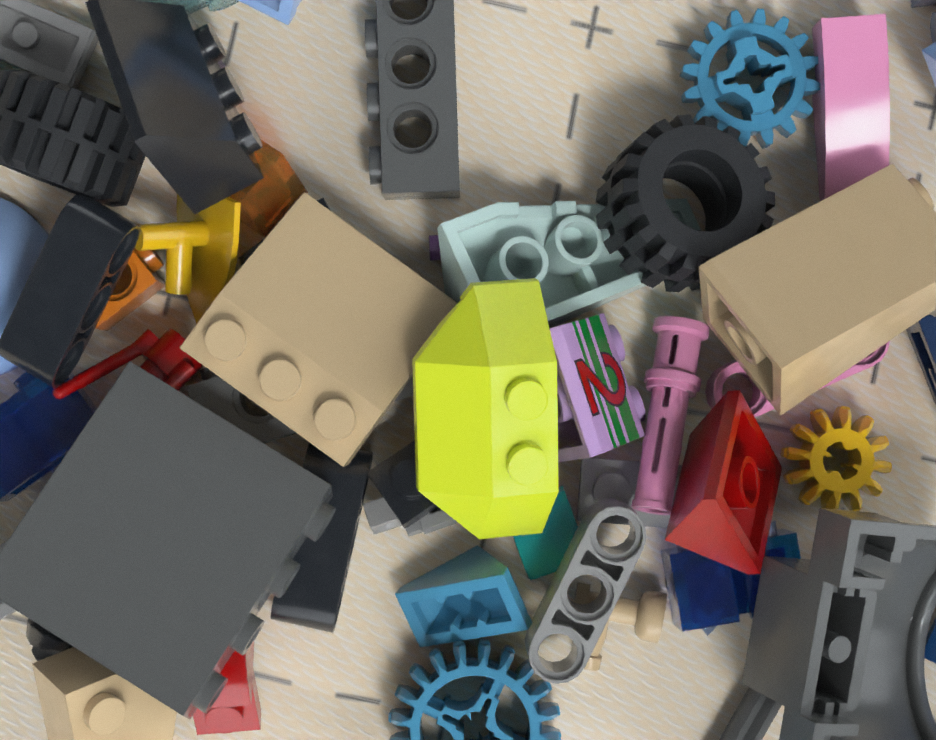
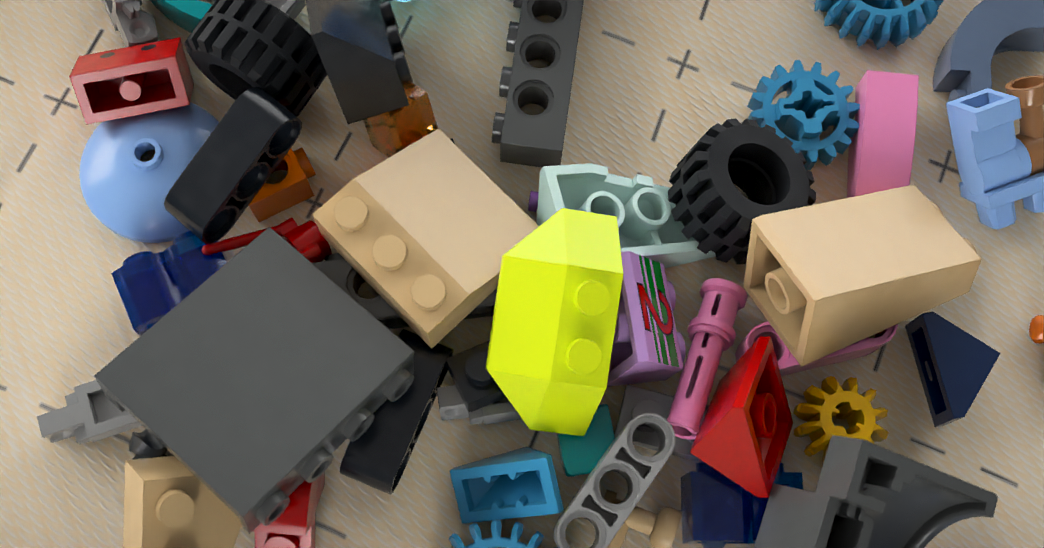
camera: 10 degrees right, 15 degrees down
(198, 250) = (343, 154): yellow shield -> none

